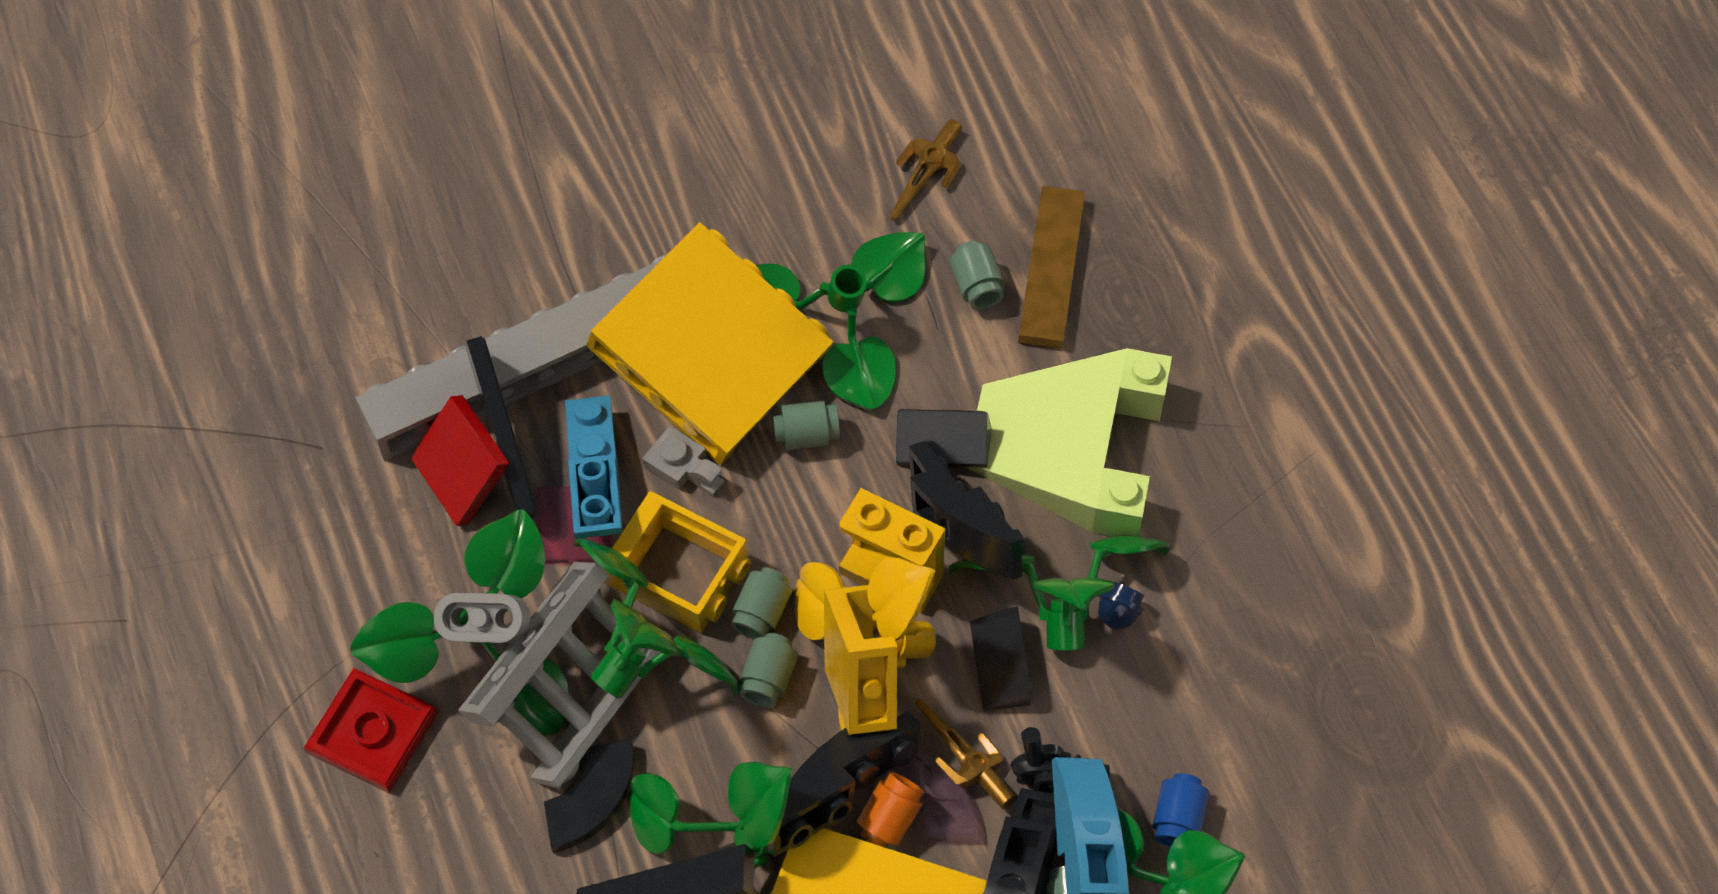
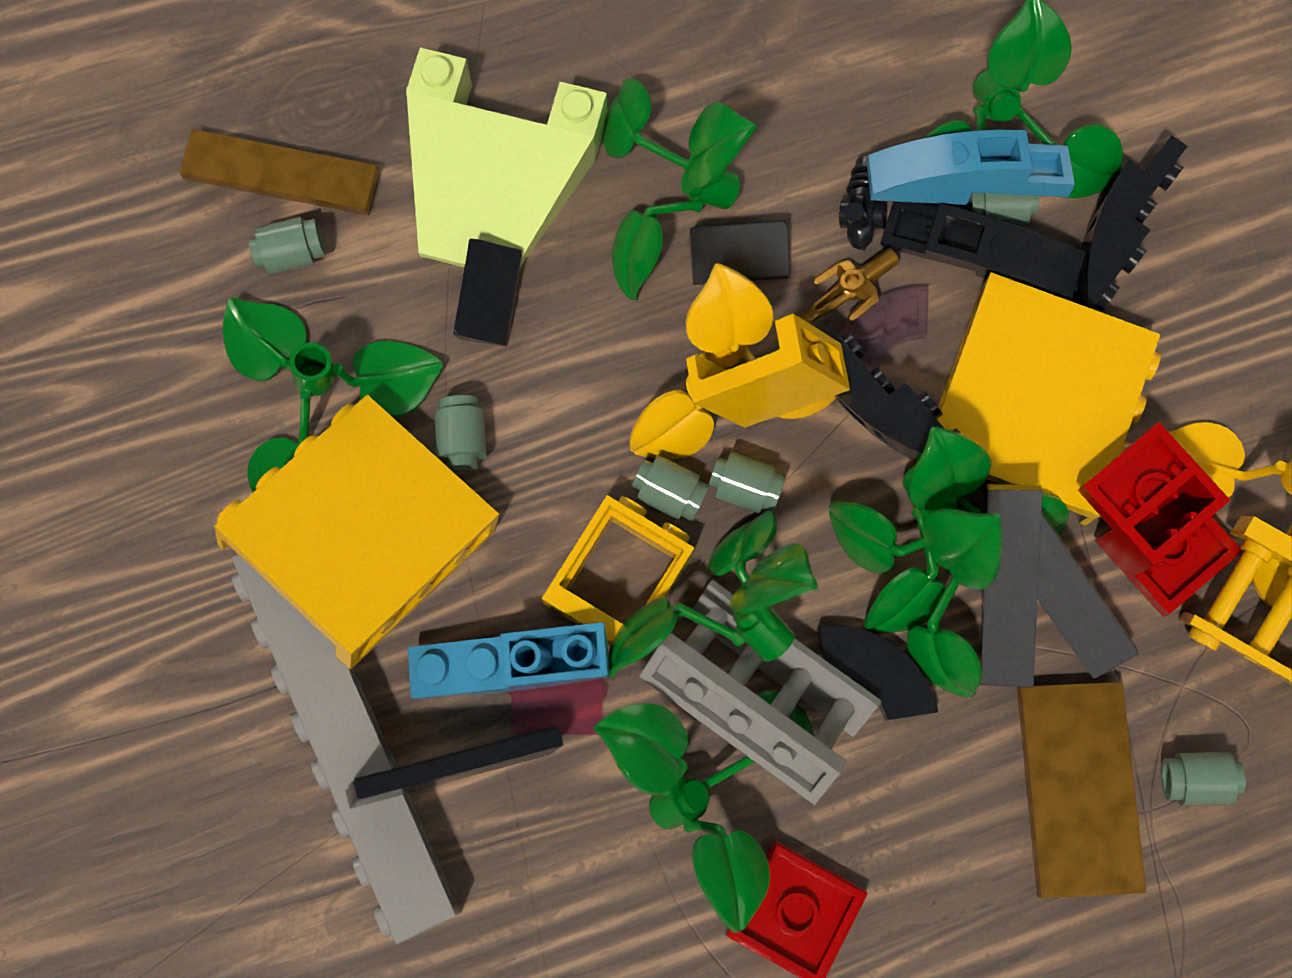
camera: 90 degrees left, 15 degrees up
(459, 460) = (485, 816): red tile -> none
(484, 620) = (712, 774): light grey plate -> none
(681, 459) = (488, 575): light grey plate -> none
(689, 796) = (959, 542): none -> green plant
(886, 531) = (631, 341): yellow panel -> none
(890, 810) = (908, 361): orange brick -> none
(932, 158) = (125, 287): pearl gold piece -> none
(971, 520) = (607, 264): black slope -> none
(1120, 606) = (679, 131): dark blue plate -> none
(1179, 807) = (907, 97): blue brick -> none

